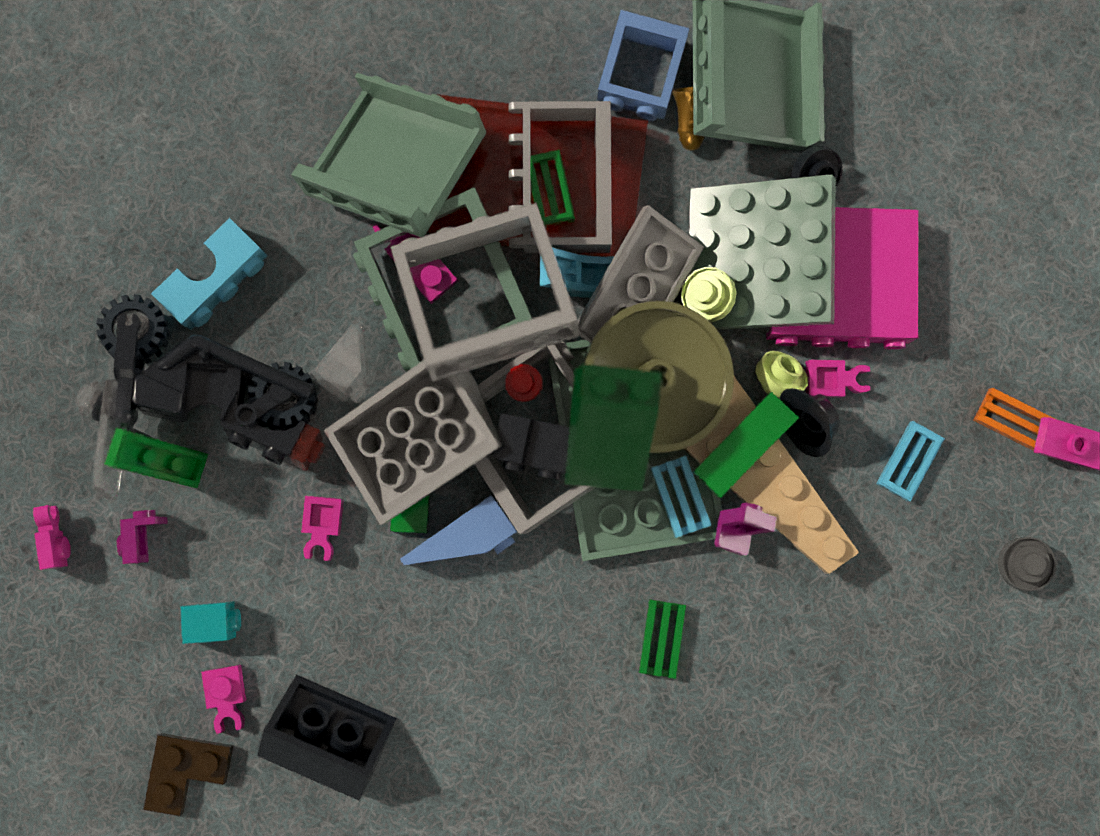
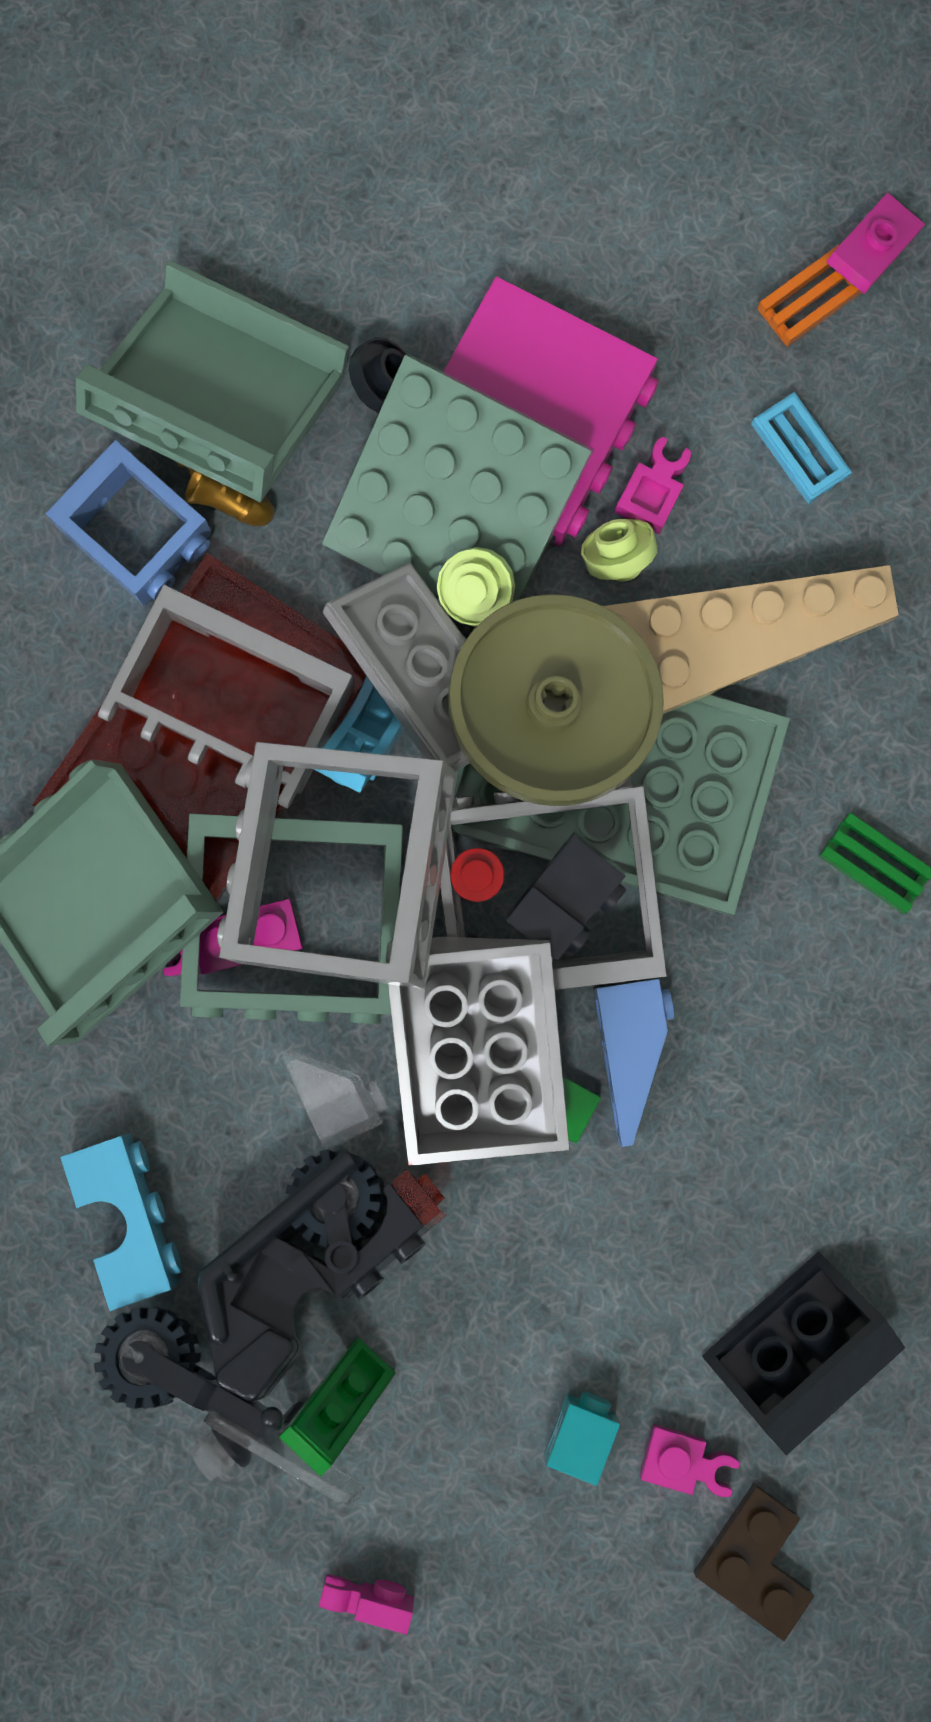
camera: 65 degrees left, 0 degrees up
(133, 542) = (428, 1492): magenta bracket -> none
(321, 518) = (518, 1226): dark pink plate -> none
(556, 218) = (276, 731): green tile -> none
(611, 426) = (596, 786): dark green slope -> none
(693, 489) = (756, 754): medium azure tile -> none
(738, 526) = (785, 698): magenta bracket -> none
(745, 445) = (691, 636): green tile -> none
(815, 424) = (696, 544): black piece -> none

